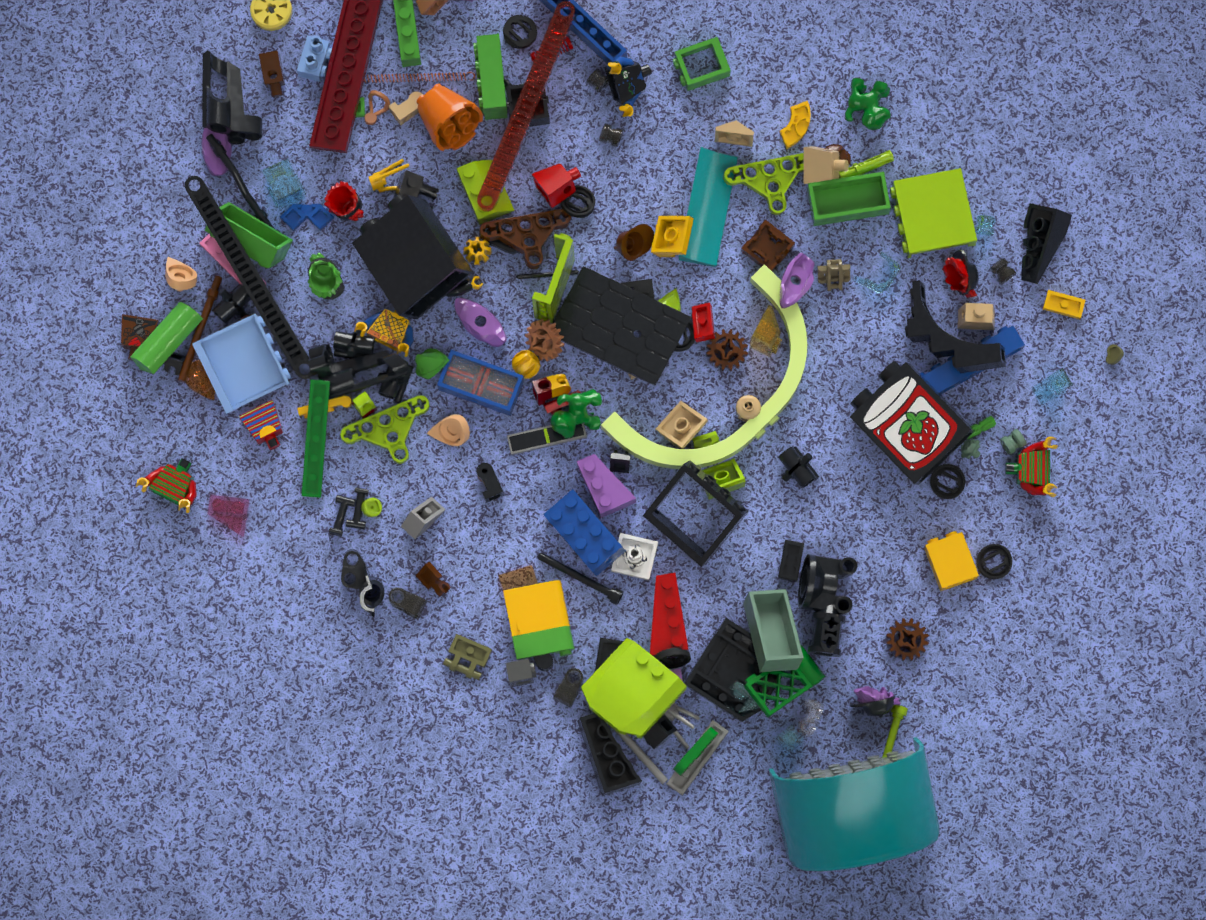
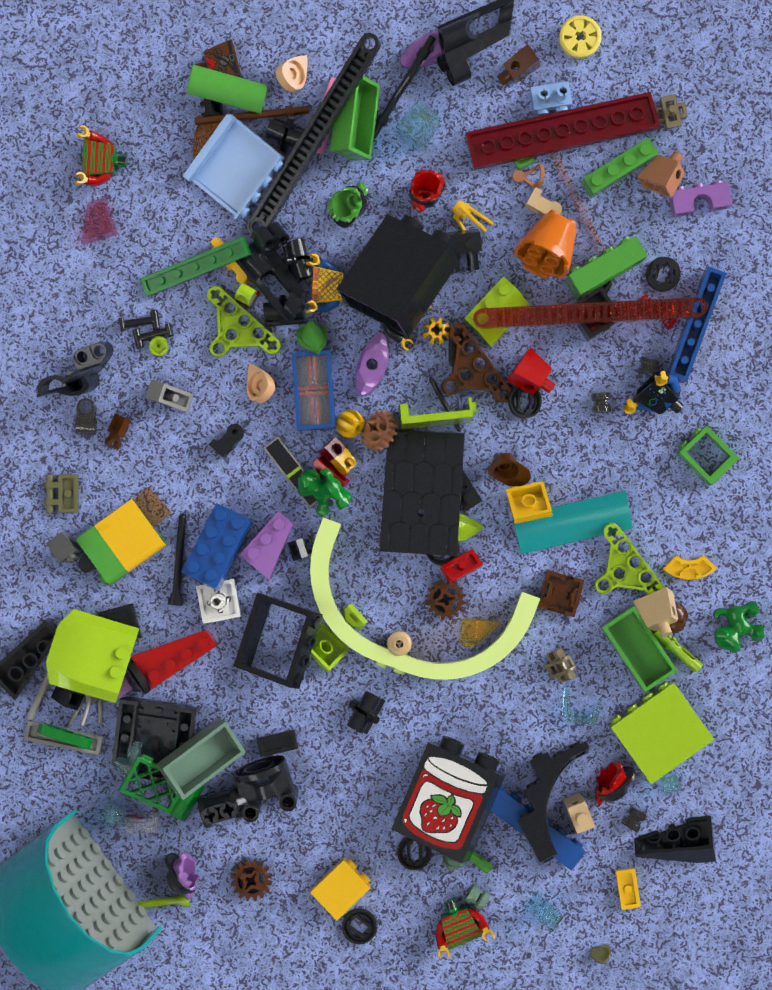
camera: 65 degrees right, 10 degrees up
(263, 424) = (189, 214): torso -> none
(299, 213) = (399, 153): blue tile -> none
(568, 691) = (72, 596): clear smoke piece -> none
(681, 425) = (357, 589): tan slope -> none
(734, 133) = (652, 515): tan slope -> none
(801, 268) = (551, 635): medium lavender piece -> none

